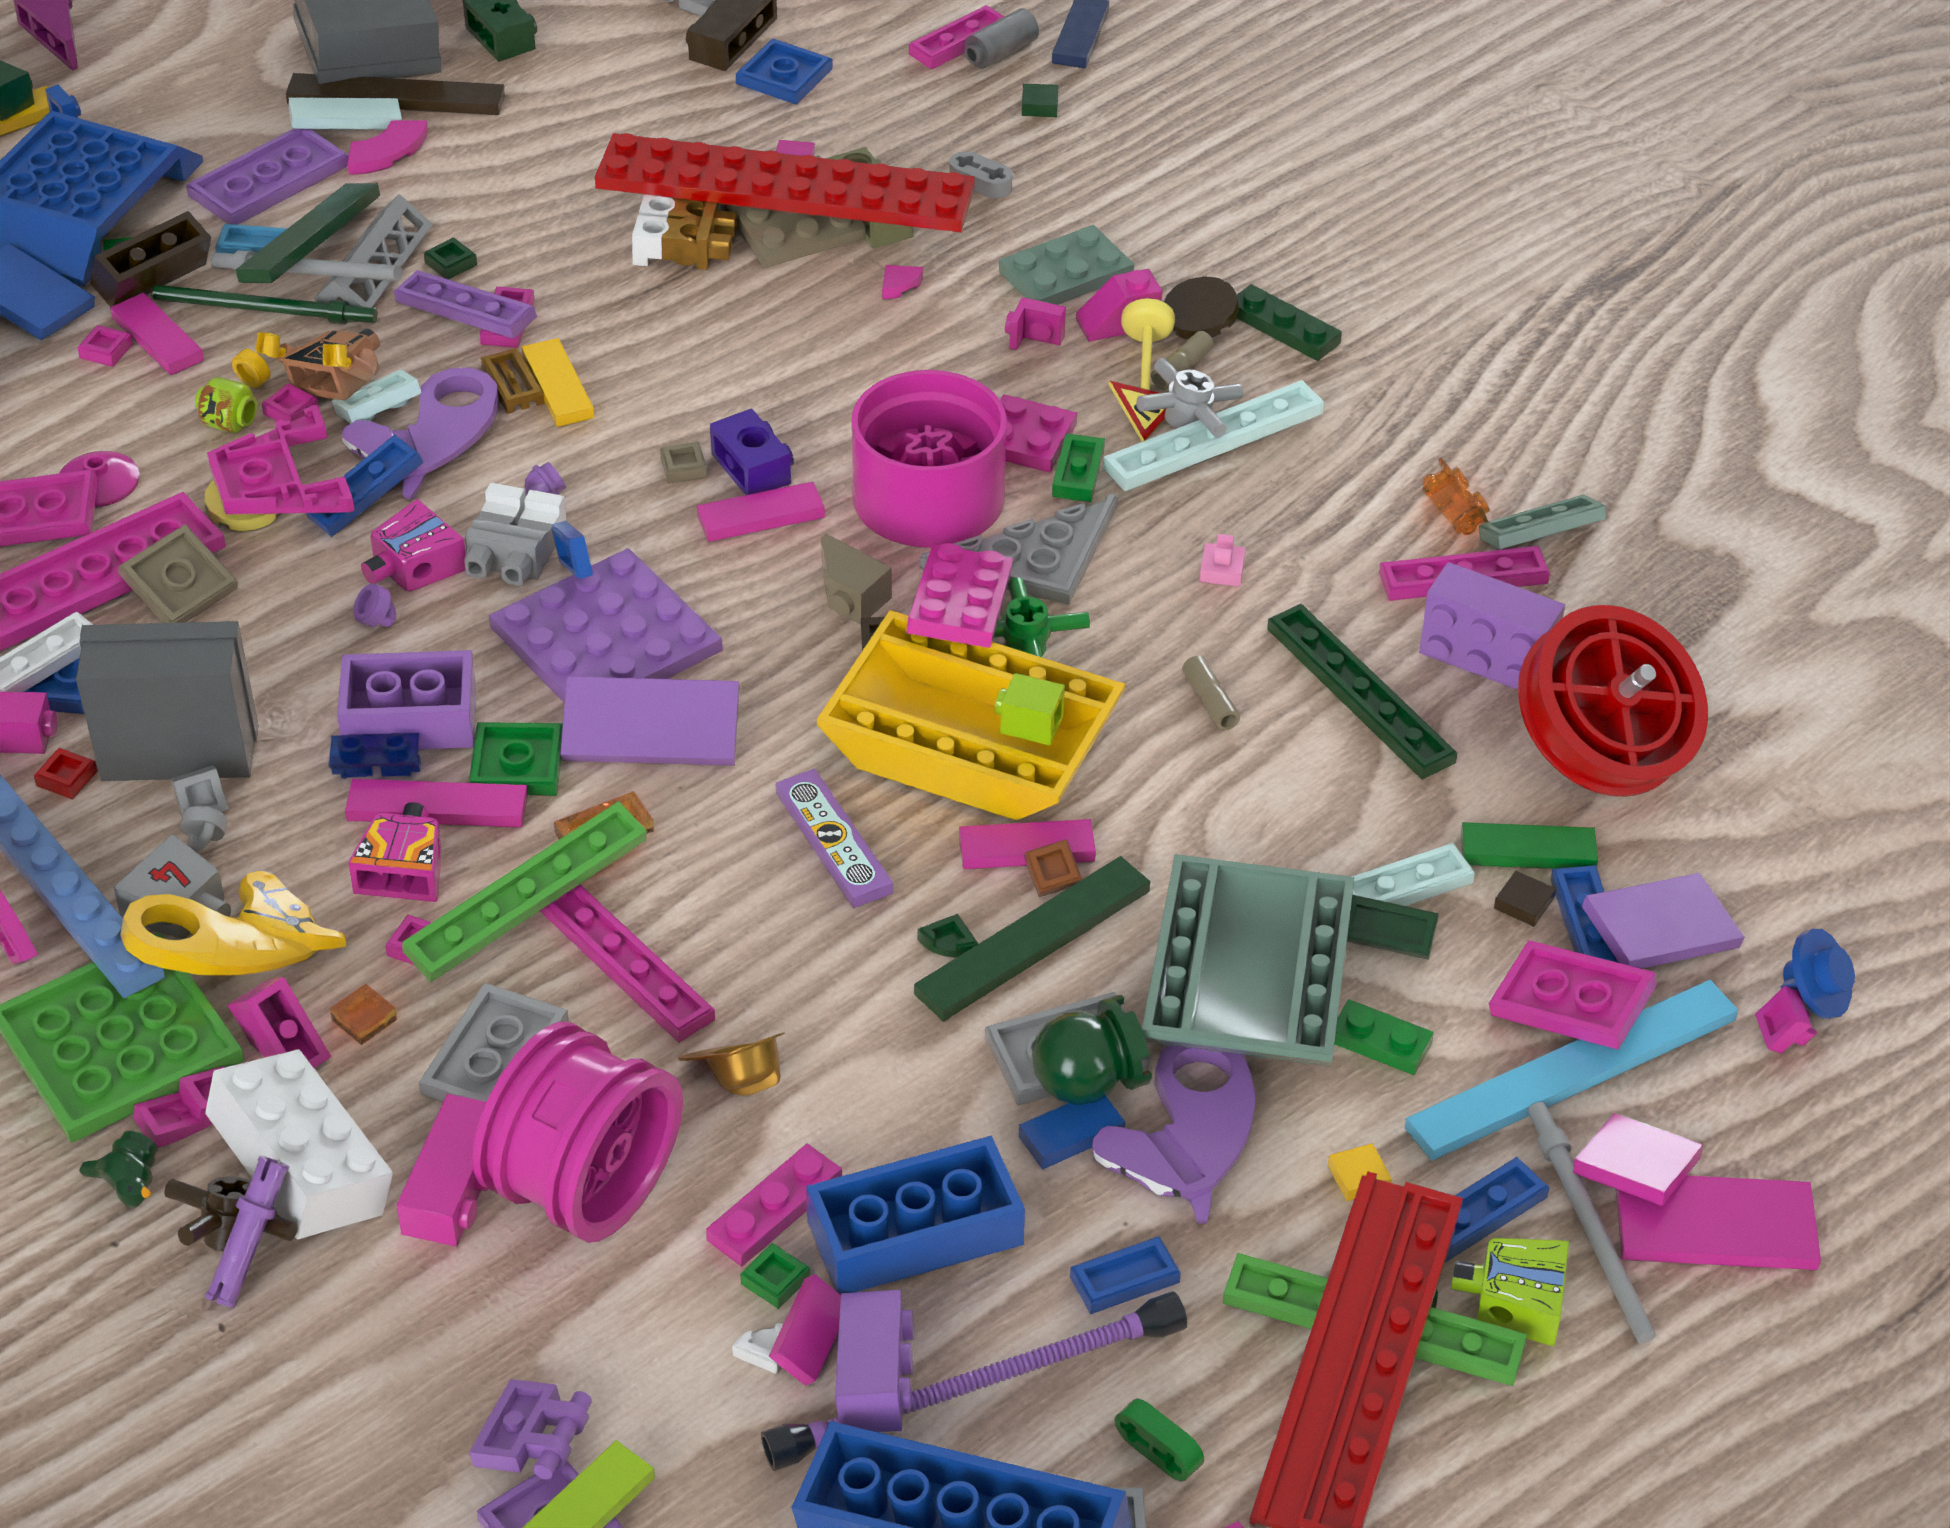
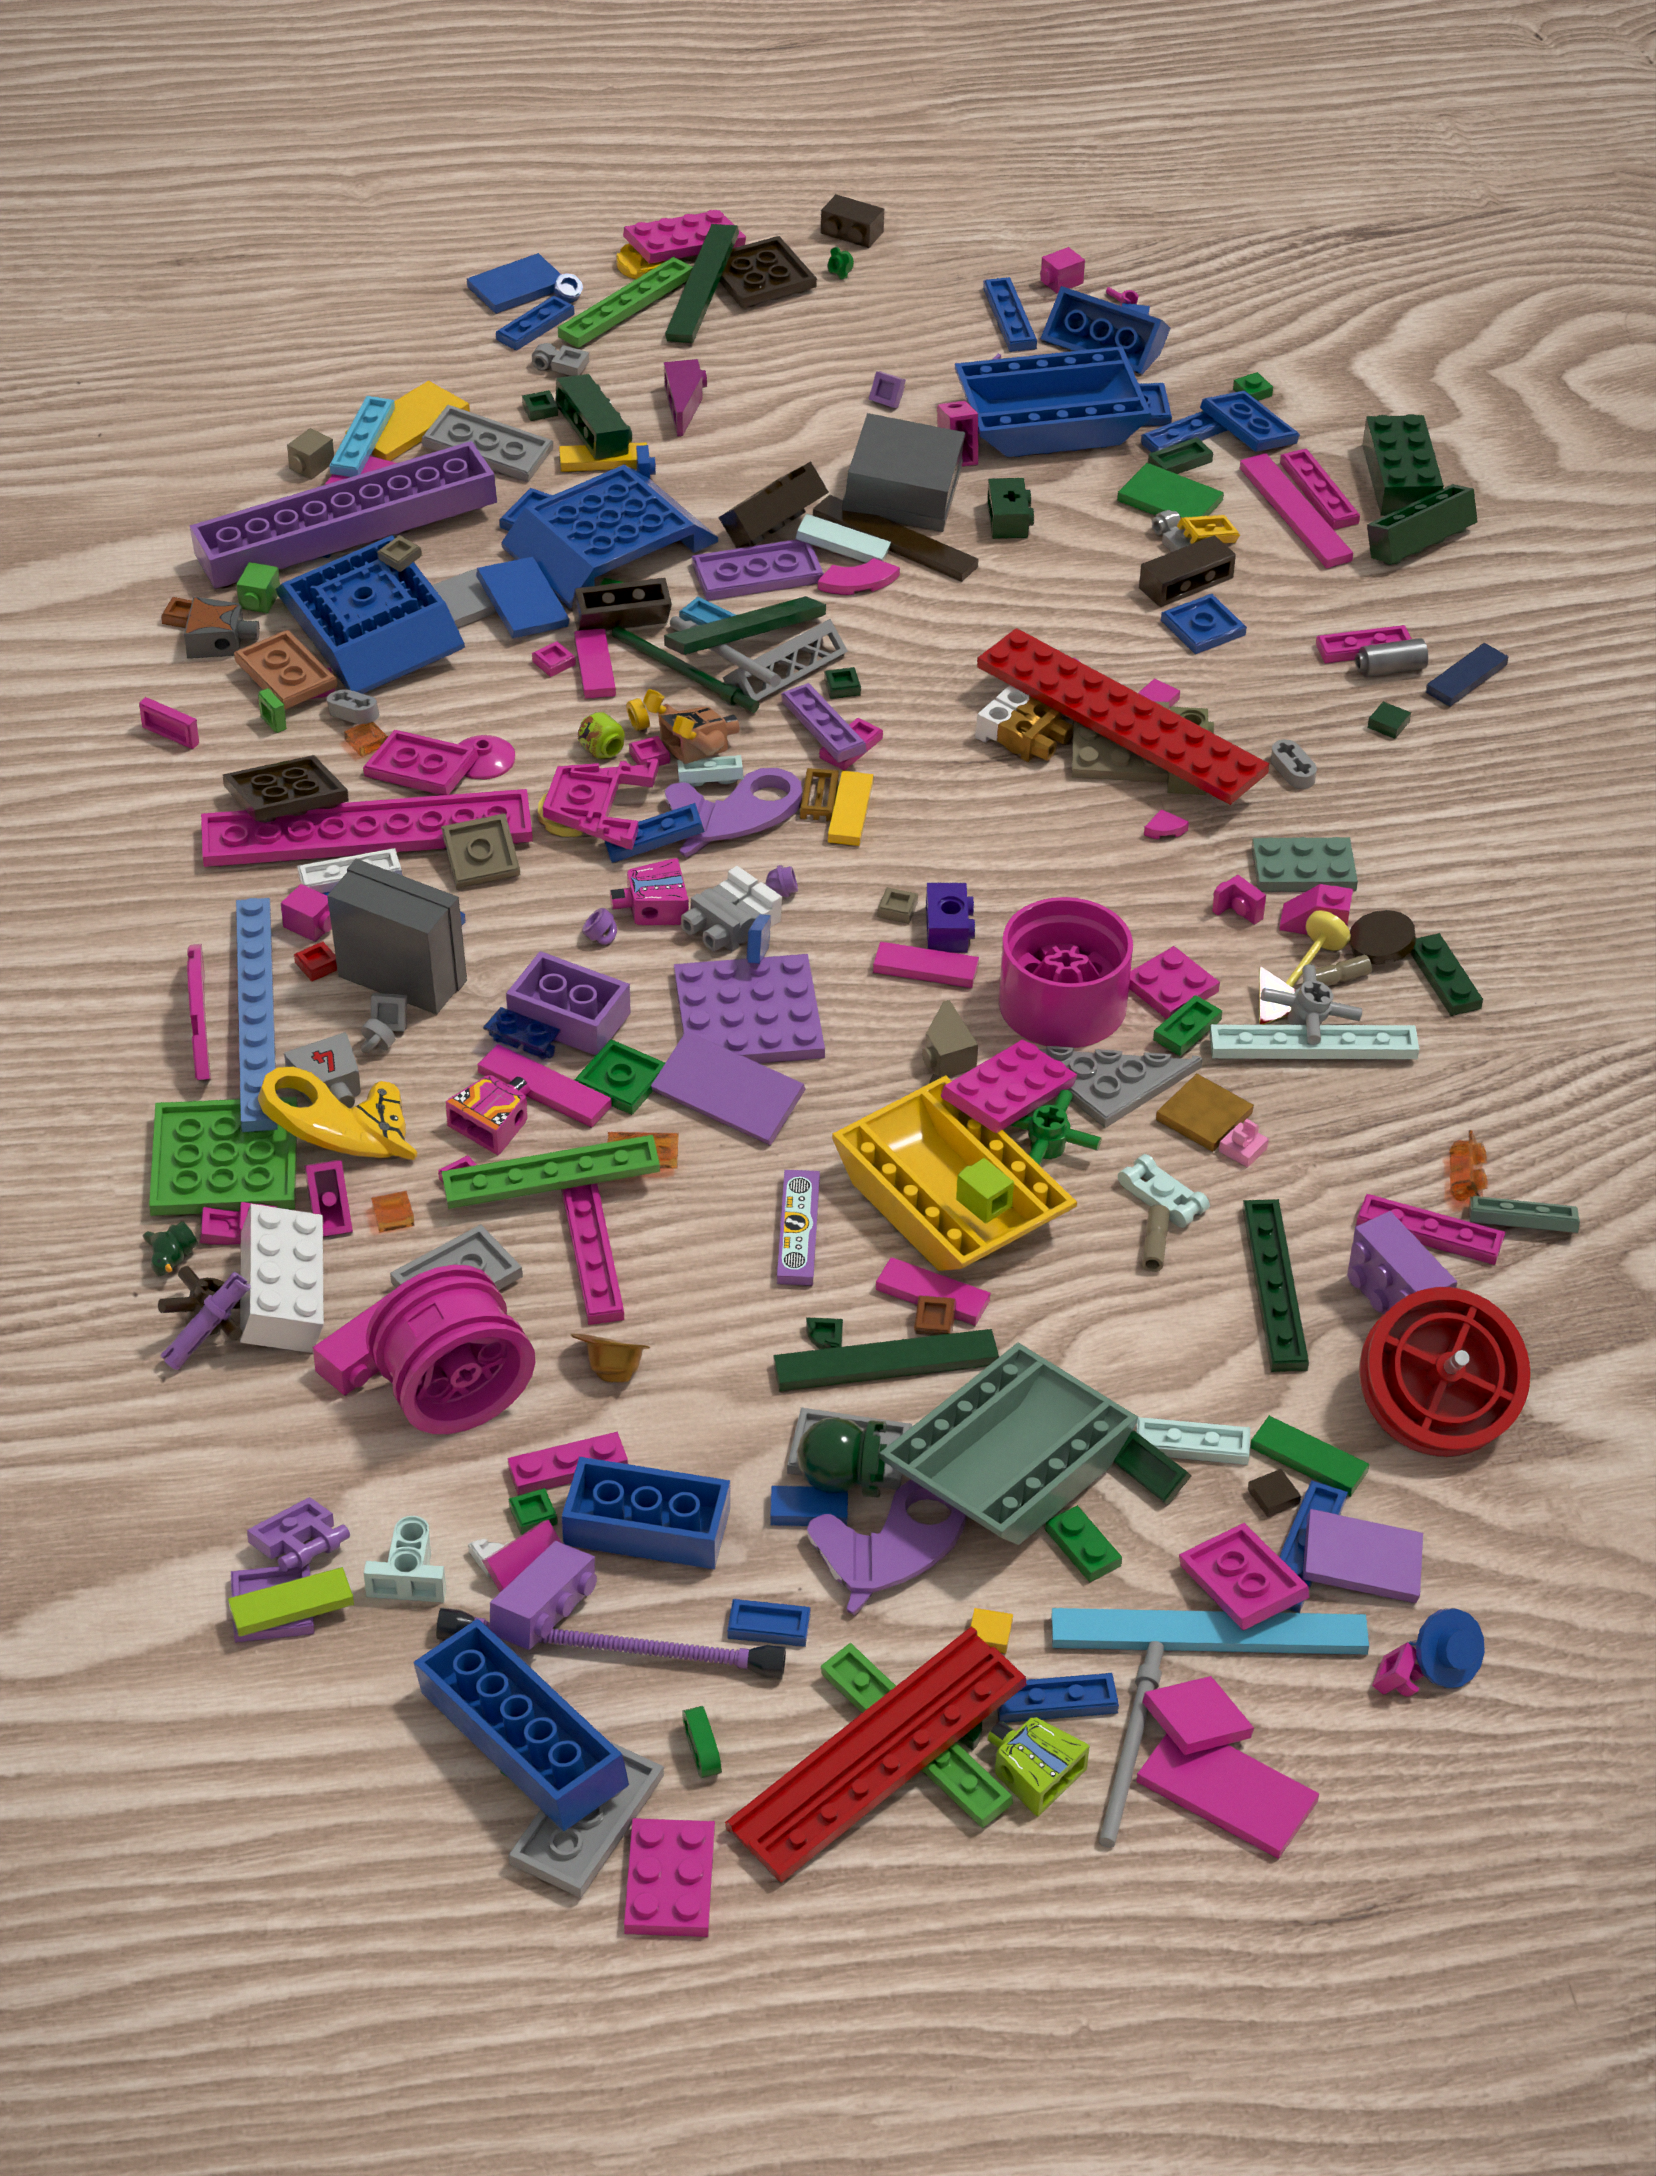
camera: 30 degrees right, 0 degrees up
(248, 99) = (773, 505): none -> dark brown wedge
(677, 1431) = (408, 1568): none -> light aqua tile
(1159, 547) = (1204, 1112): none -> pearl gold tile
(1178, 642) = (1162, 1190): none -> light aqua plate

